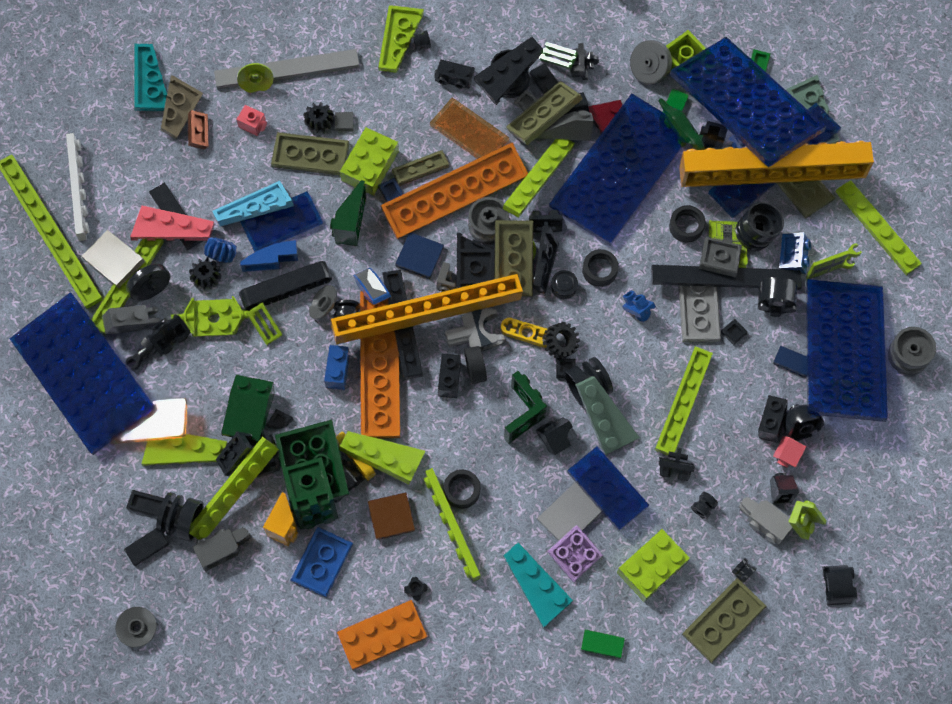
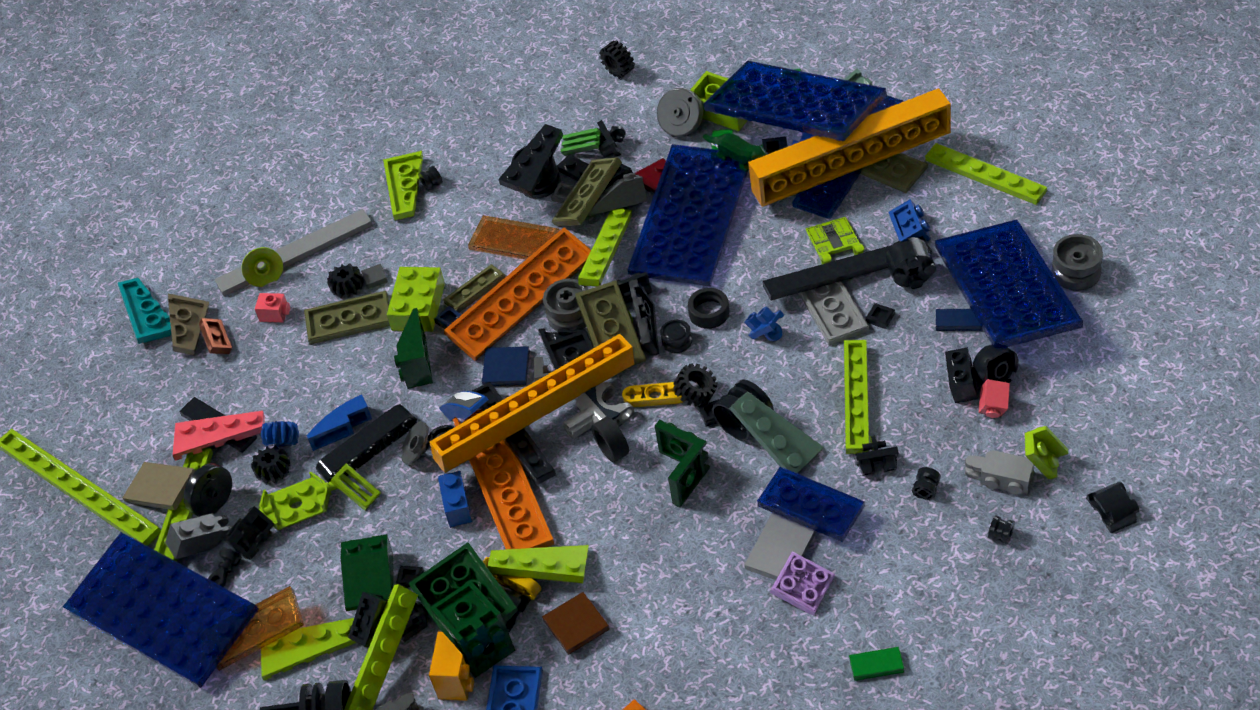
camera: 10 degrees left, 20 degrees down
(78, 193) = (100, 439): white plate -> none
(255, 204) = (306, 378): medium azure wing -> none
(283, 223) = (343, 383): clear blue plate -> none
(415, 582) = (634, 680): black plate -> none
(449, 375) = (585, 462): black brick -> none
(454, 74) = (477, 196): black bracket -> none
(454, 533) = (654, 609): lime plate -> none
(461, 504) = (645, 582): black tyre -> none
(537, 585) = (783, 636): teal wing -> none
(555, 435) = (729, 475): black brick -> none
(653, 565) = (896, 561): lime brick -> none
(691, 211) = (786, 249): black tyre -> none
(720, 256) = (832, 251): dark grey tile -> none
(724, 620) = (1003, 589): olive tile -> none
(759, 226) = (860, 209): black wheel -> none
(783, 488) = (1006, 435): black slope -> none
(833, 262) = (953, 213): lime flag -> none

